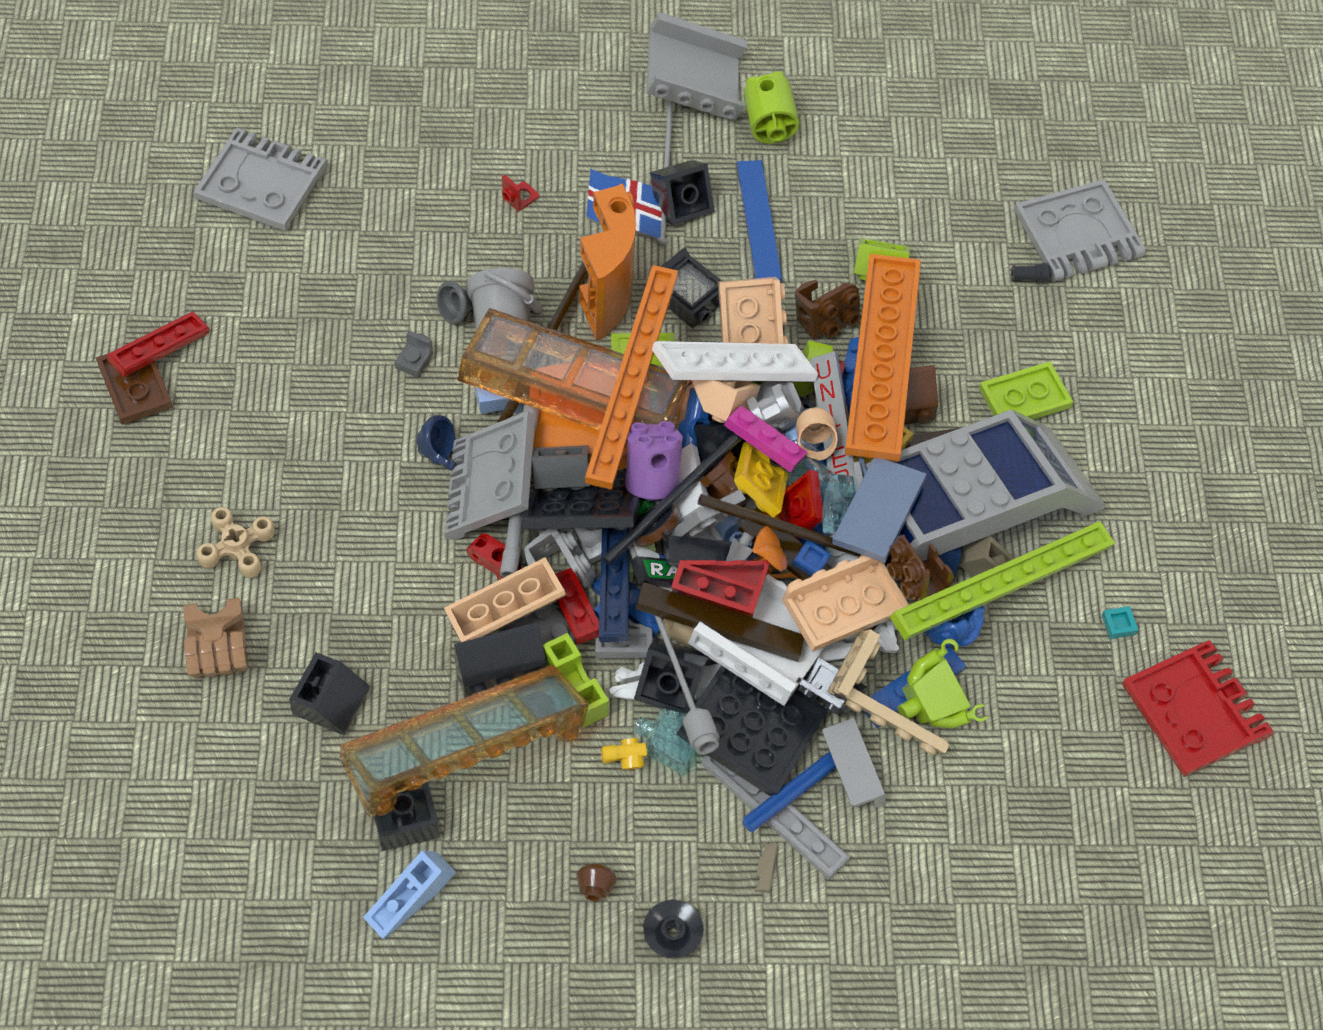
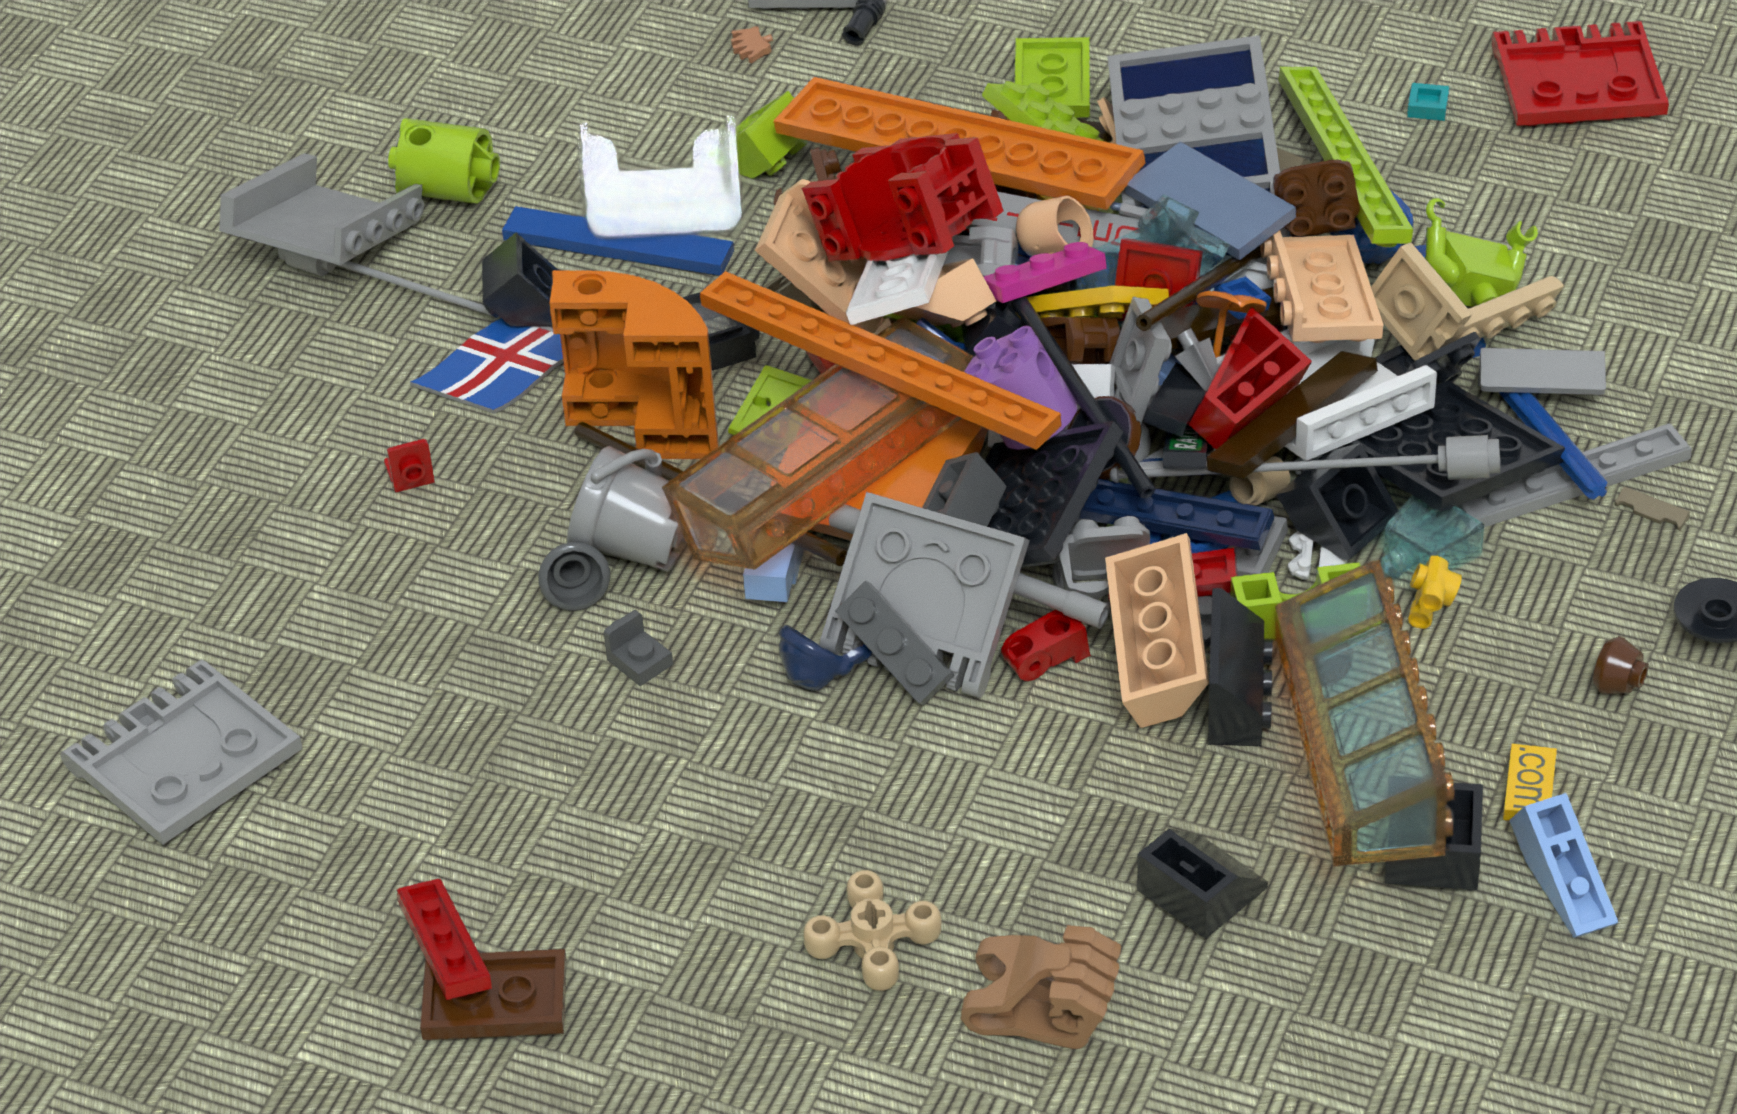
camera: 60 degrees left, 15 degrees down
(455, 476) = (894, 643): none -> dark grey plate
(481, 857) = (1528, 777): none -> yellow tile
(779, 338) = (903, 198): none -> red piece
(789, 222) = (661, 200): none -> clear windscreen
(958, 397) = (1034, 107): none -> lime plate
(980, 224) = (750, 44): none -> nougat piece

